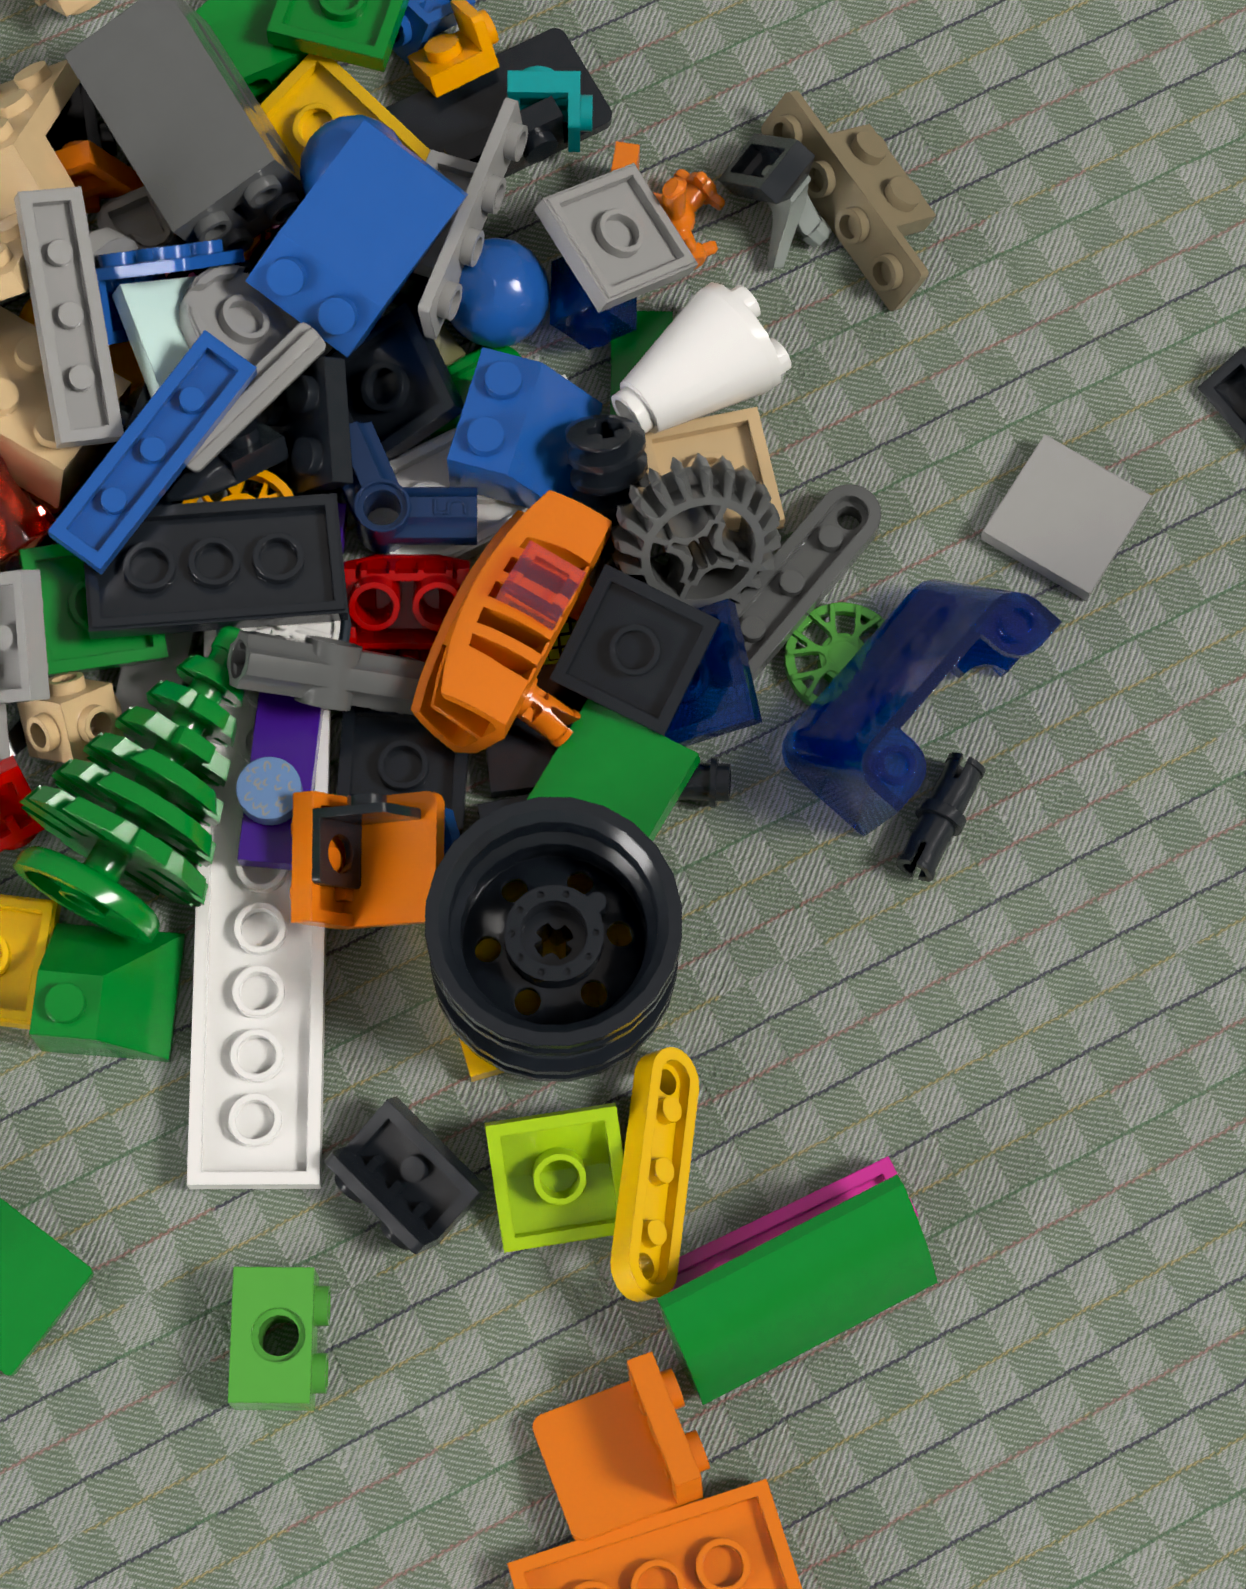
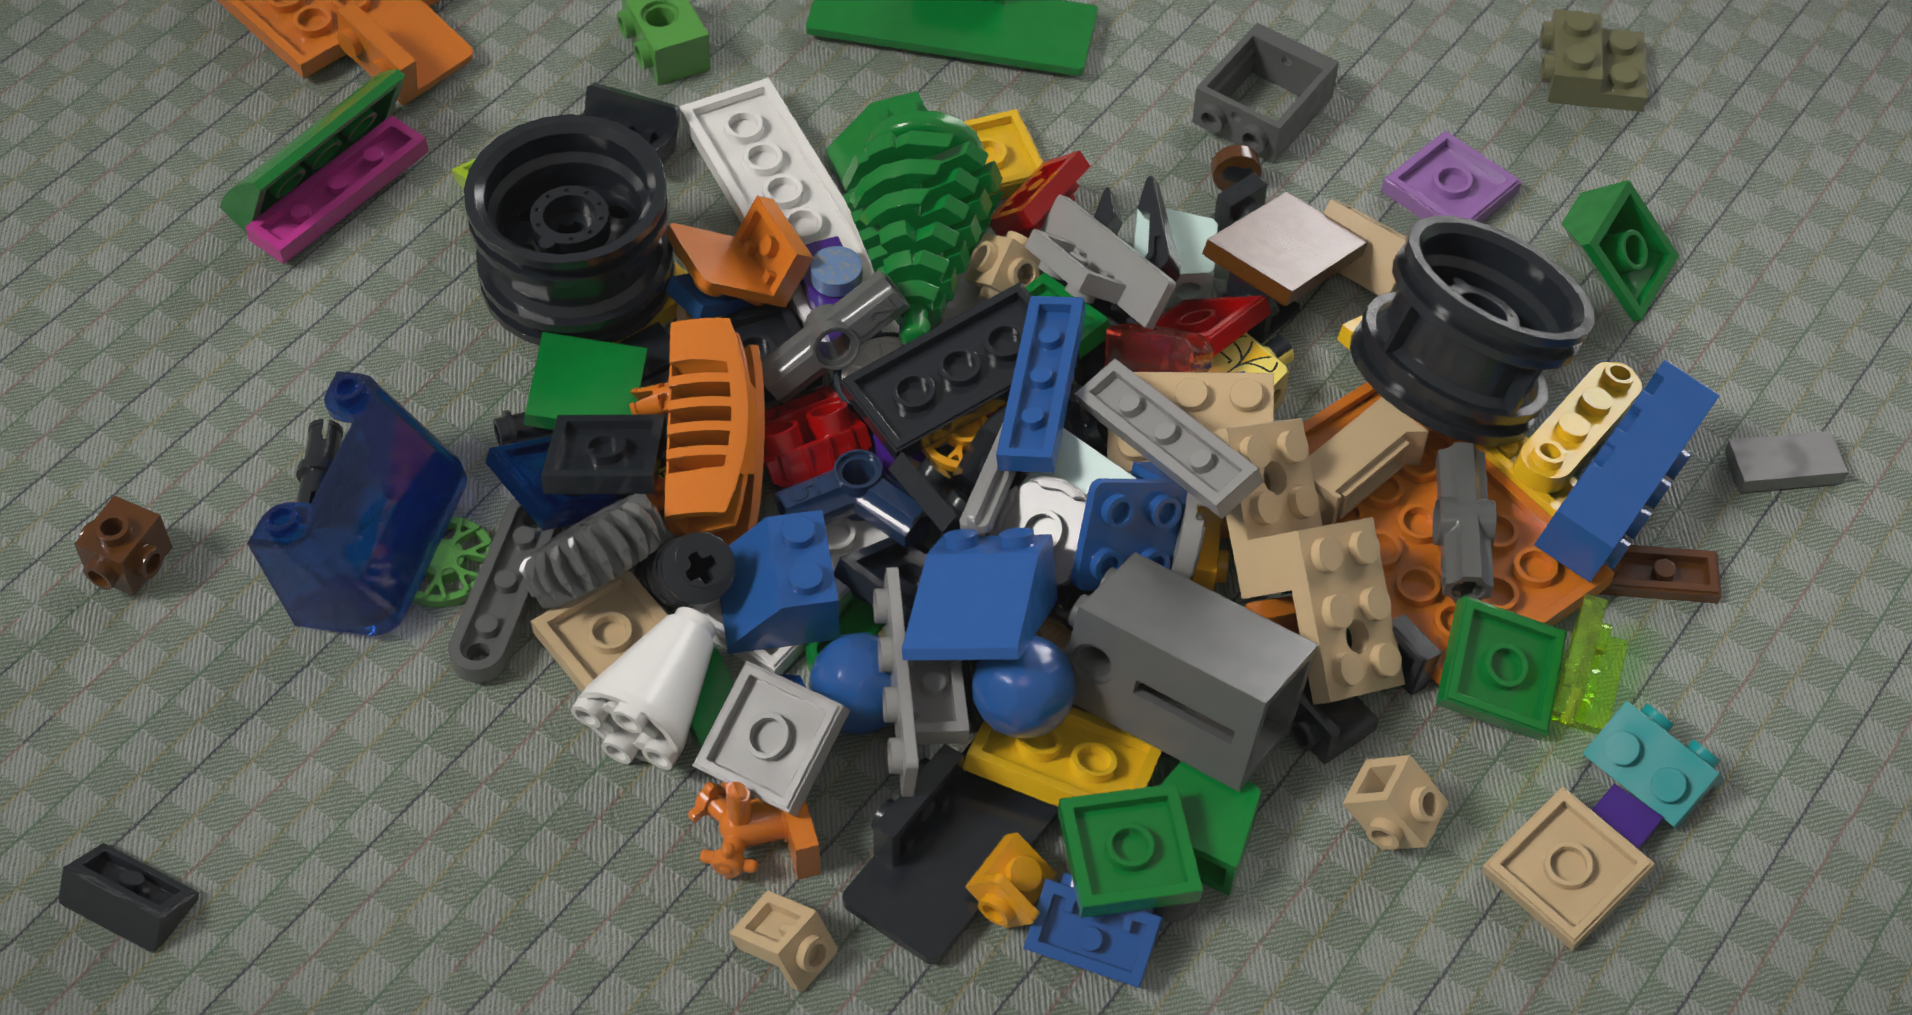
camera: 155 degrees right, 20 degrees down
(347, 825) = (751, 255): black bracket -> none
(541, 585) = (692, 425): clear pink tile -> none
(564, 86) = (899, 865): teal bracket -> none
(655, 1175) = (441, 174): yellow plate -> none
(683, 101) = (786, 937): none -> tan bracket
(778, 173) = (663, 874): black piece -> none
(860, 197) = (576, 930): dark tan bracket -> none
(1065, 517) = (287, 733): light grey tile -> none
(1179, 786) = (123, 546): none -> reddish brown brick

